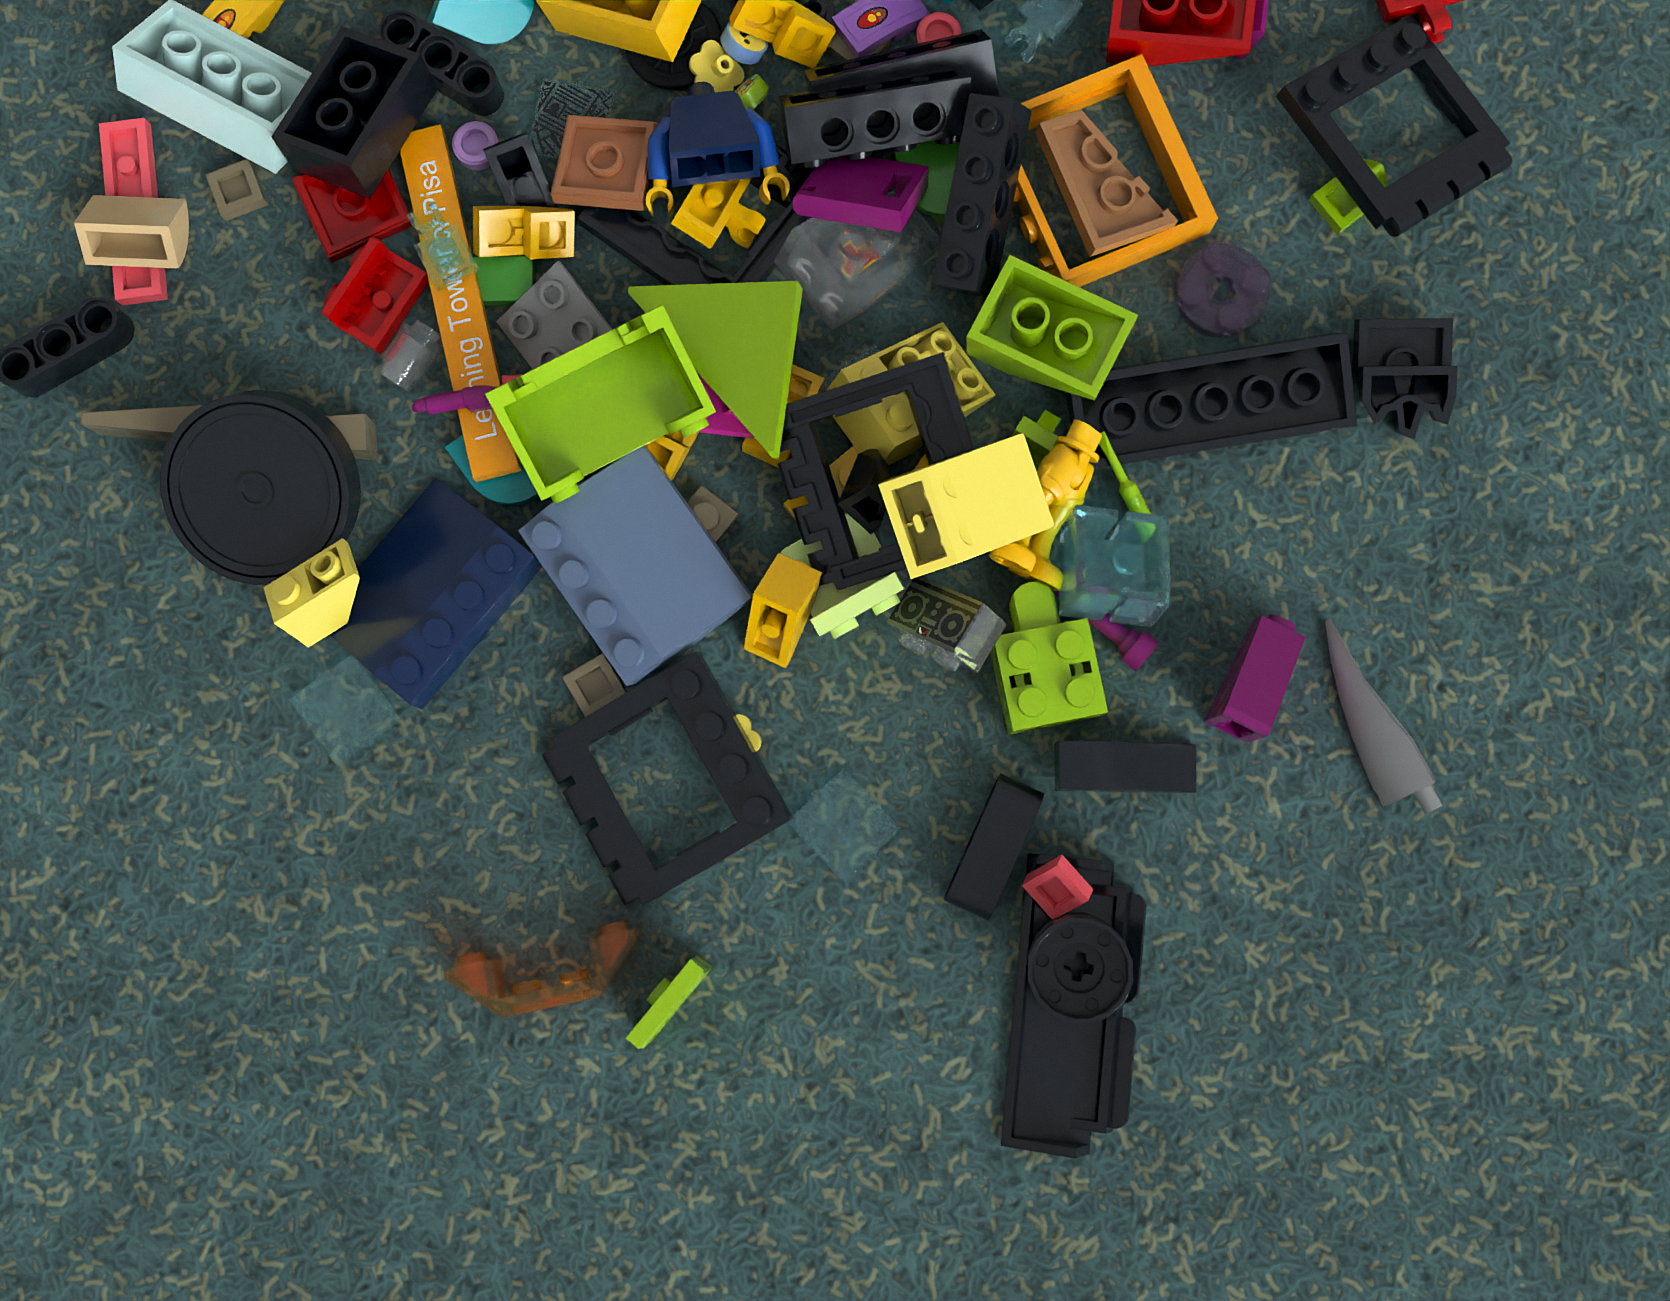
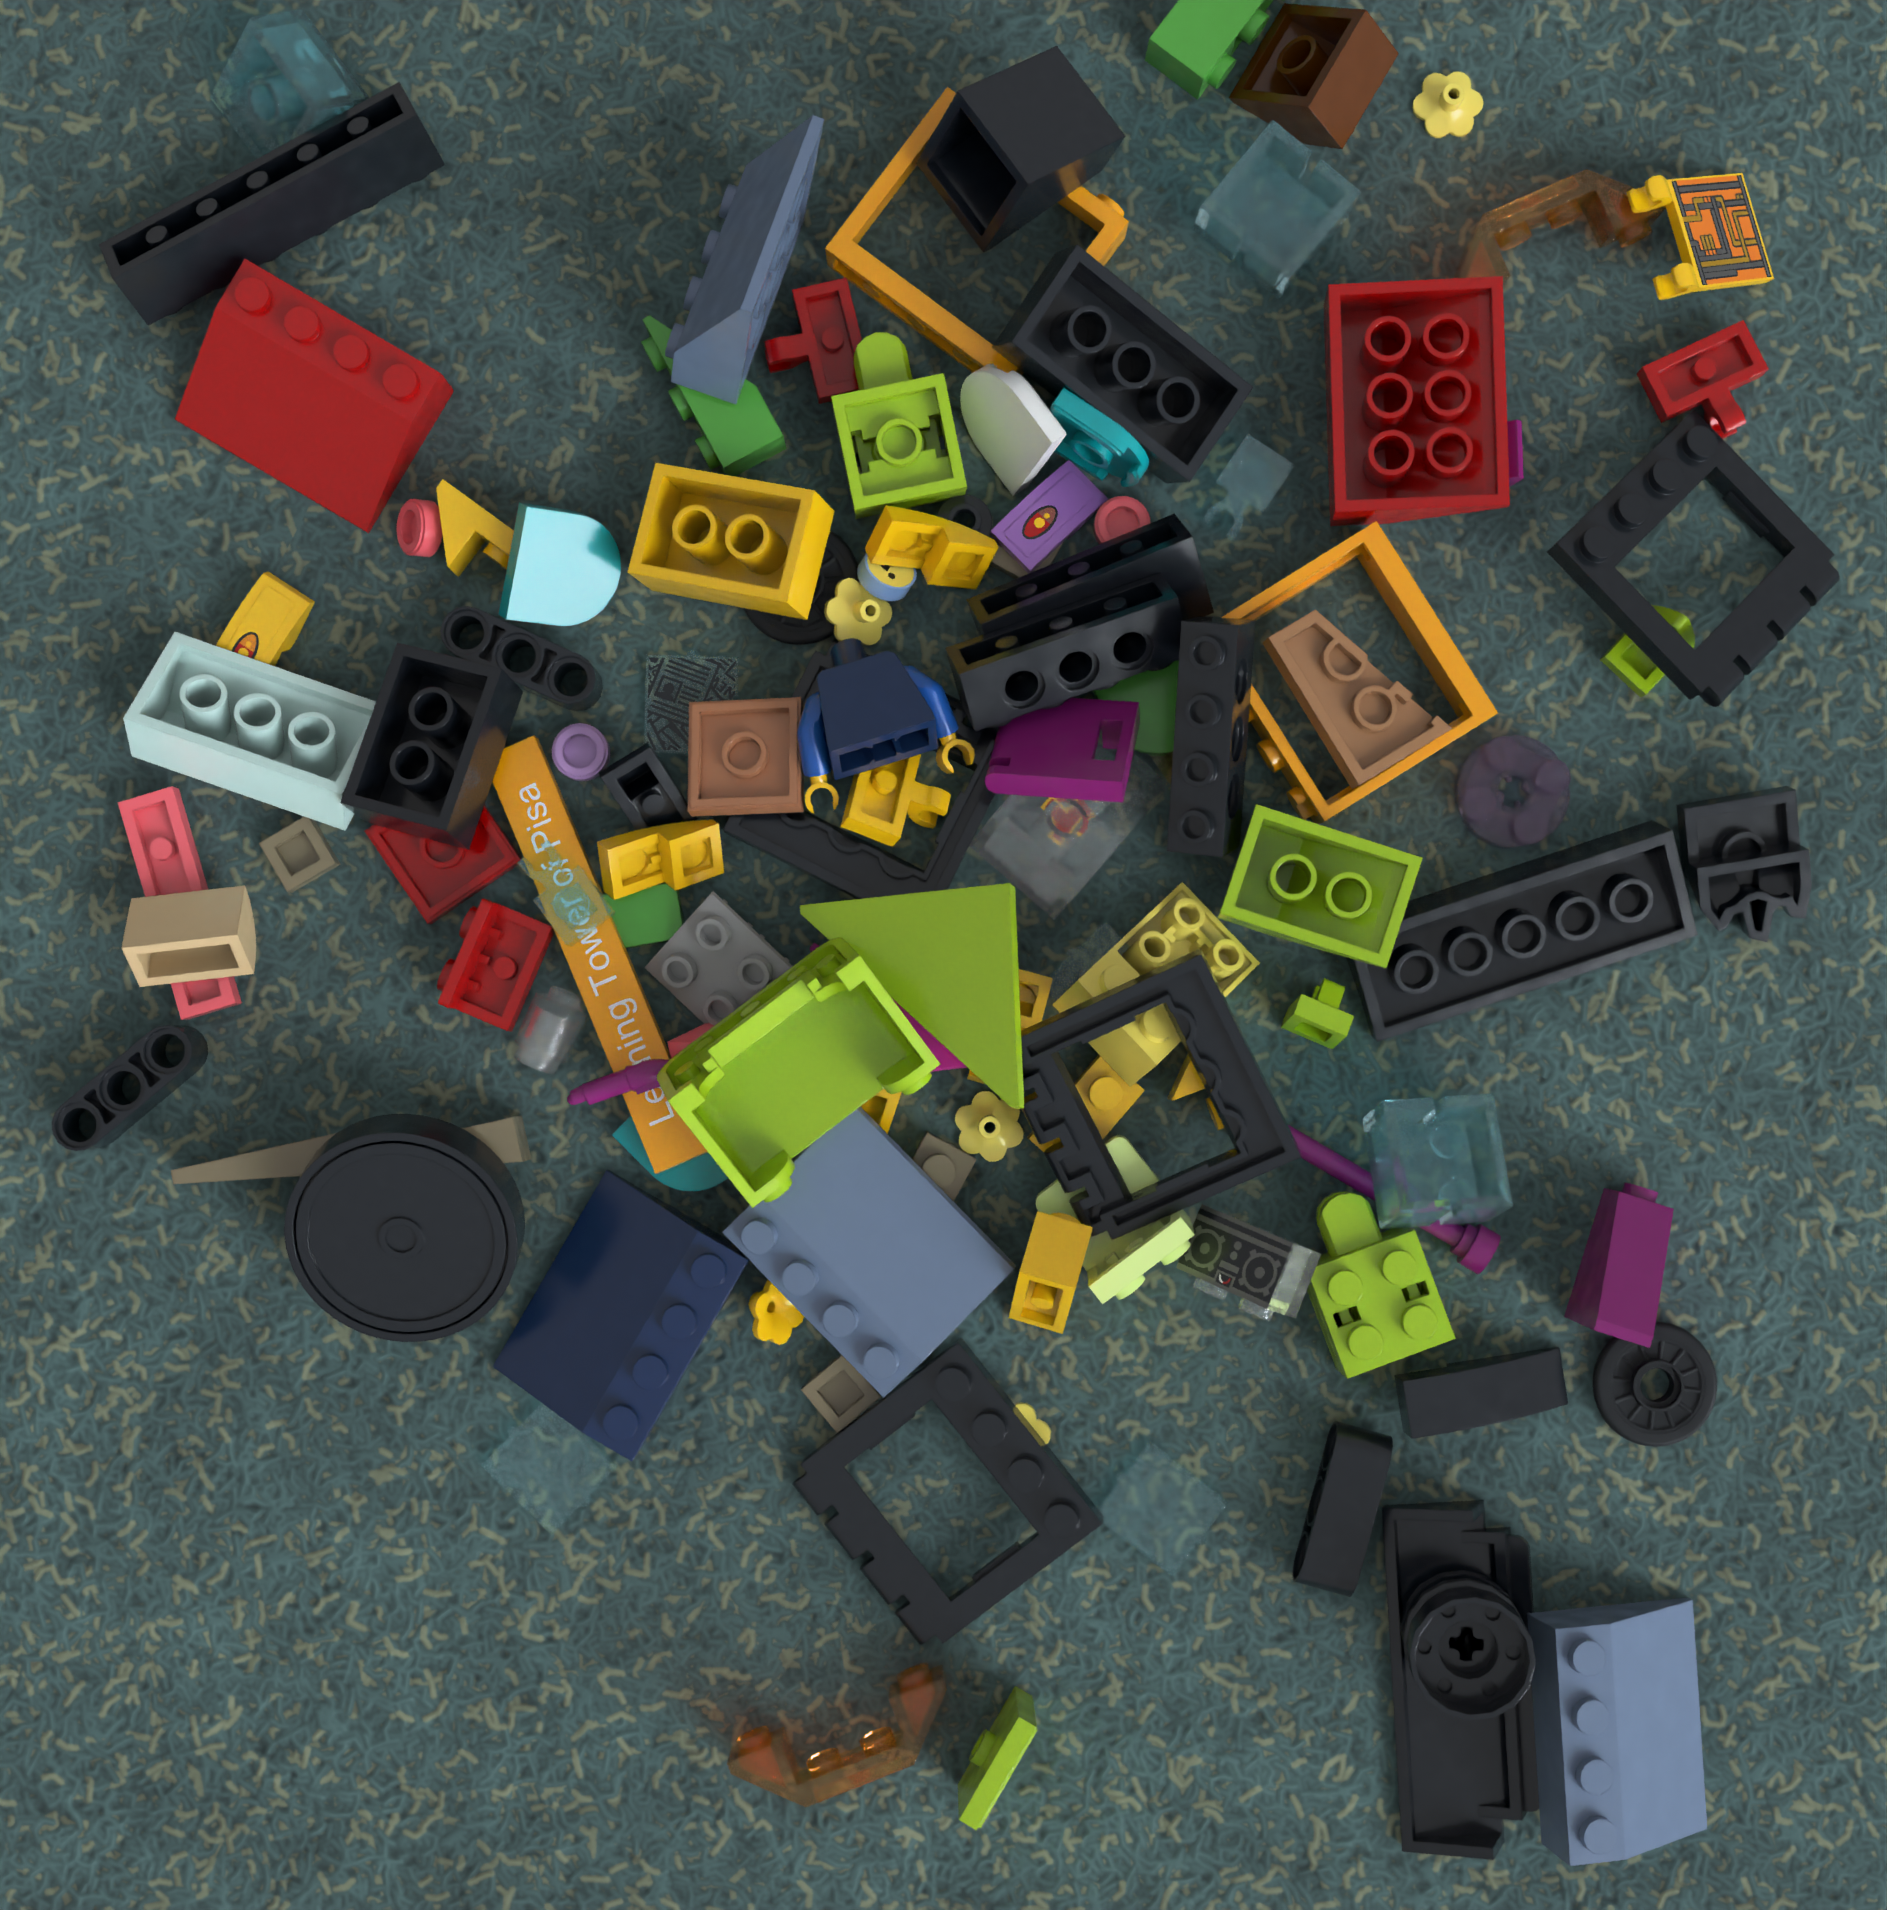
camera: 15 degrees left, 5 degrees up
(315, 595) = (494, 1345): light yellow slope -> none
(551, 610) = (773, 1315): none -> yellow plant
(752, 91) = (904, 637): lime tile -> none
(755, 503) = (971, 1122): none -> light yellow plant
(861, 494) = (1131, 1117): black brick -> none
(966, 505) = (1255, 1134): light yellow slope -> none
(1057, 887) = (1425, 1548): coral plate -> none
(1064, 480) = (1355, 1084): yellow piece -> none
(1128, 489) = (1435, 1055): lime piece -> none
(1198, 1067) = (1617, 1729): none -> sand blue slope
(1301, 787) = (1677, 1412): none -> black wheel
(1382, 743) = (1779, 1312): light grey piece -> none

